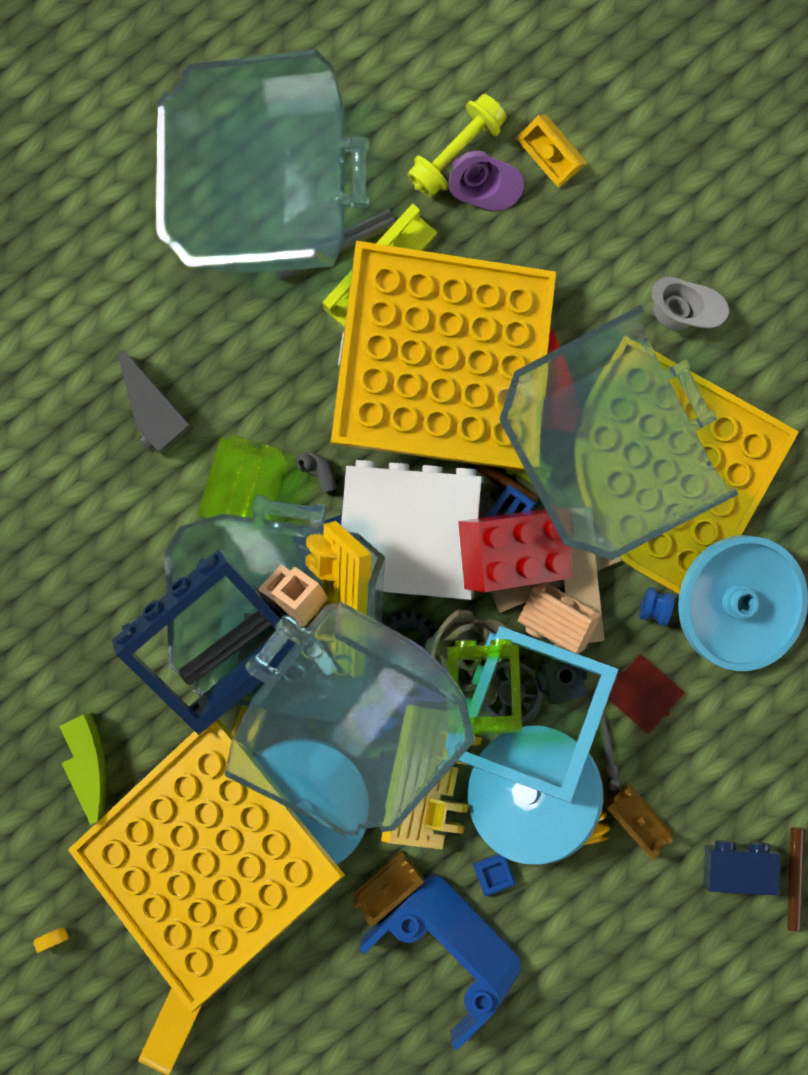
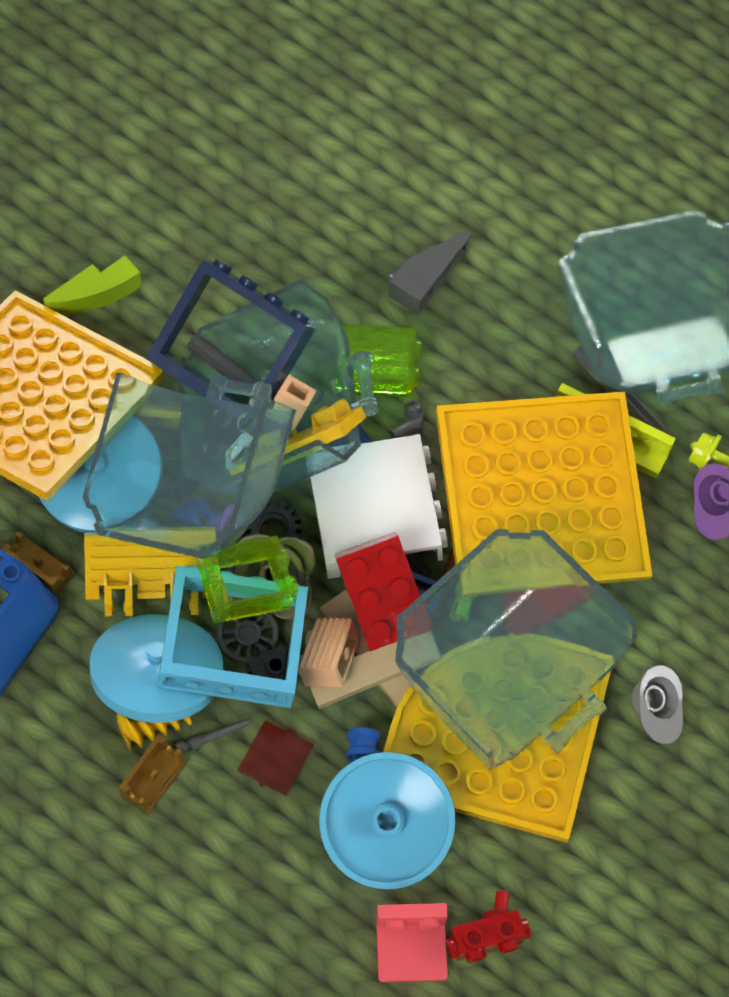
camera: 65 degrees right, 20 degrees down
(494, 874) = (71, 658): blue tile -> none
(741, 868) = (127, 878): dark blue brick -> none
(795, 879) = (128, 942): reddish brown bar -> none

